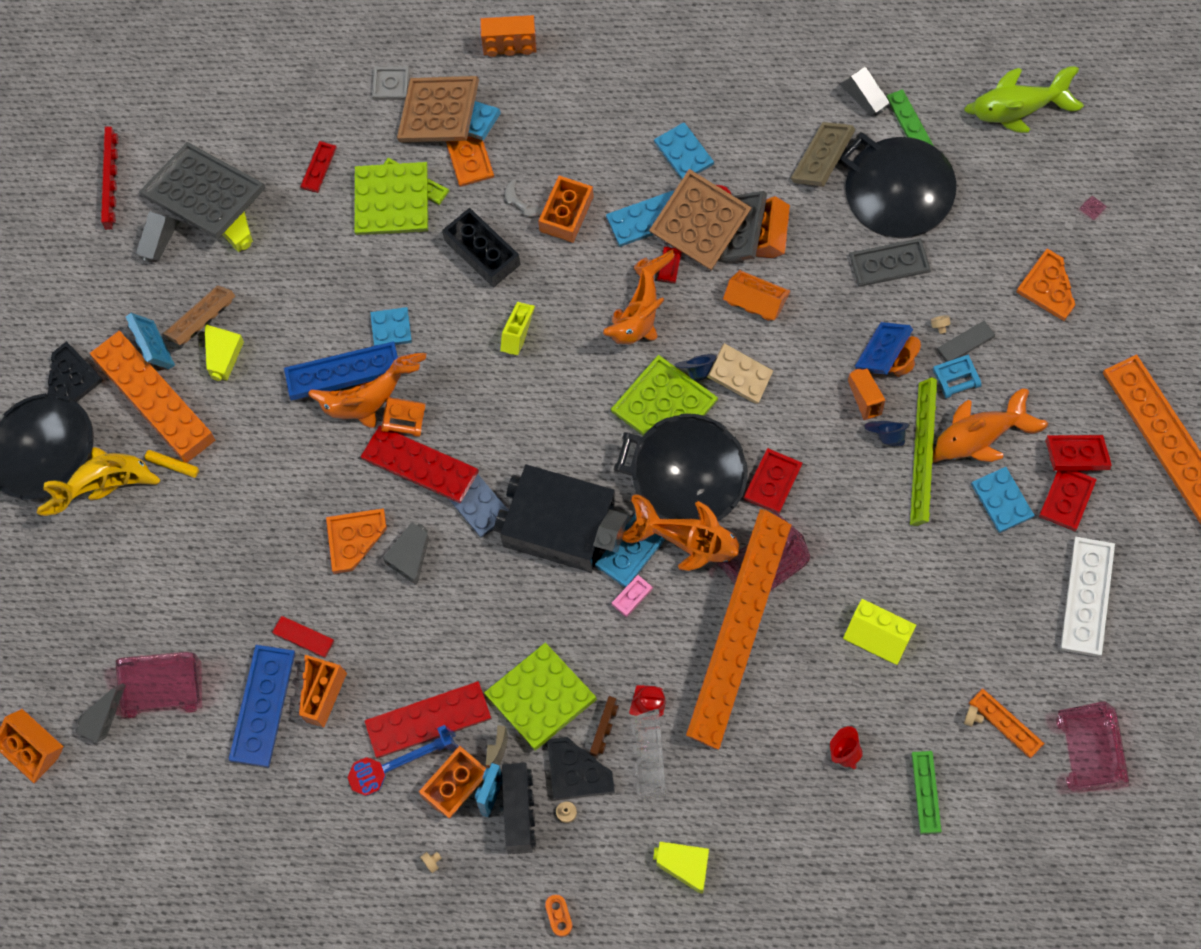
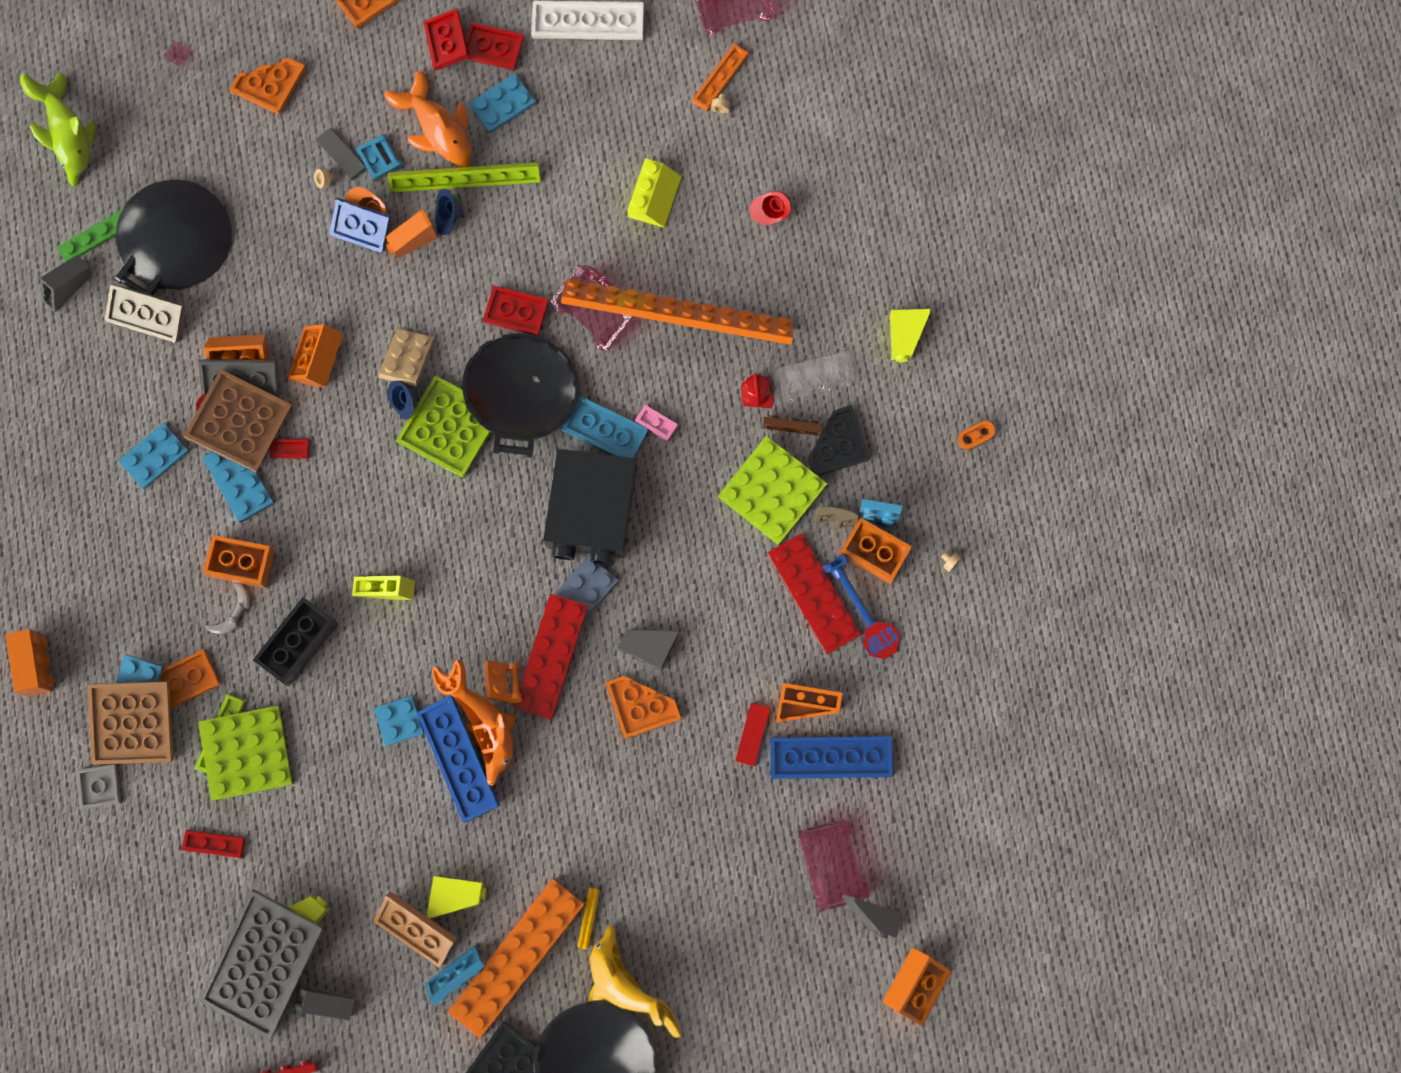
camera: 100 degrees left, 10 degrees up
(517, 810) = (889, 486): black brick -> none
(566, 817) = (874, 448): tan tile -> none
(611, 531) = (602, 442): dark grey slope -> none
(640, 313) = (359, 464): orange animal -> none
(700, 538) = (593, 360): orange animal -> none
(889, 262) = (260, 235): dark grey tile -> none
(926, 792) = (798, 135): bright green plate -> none

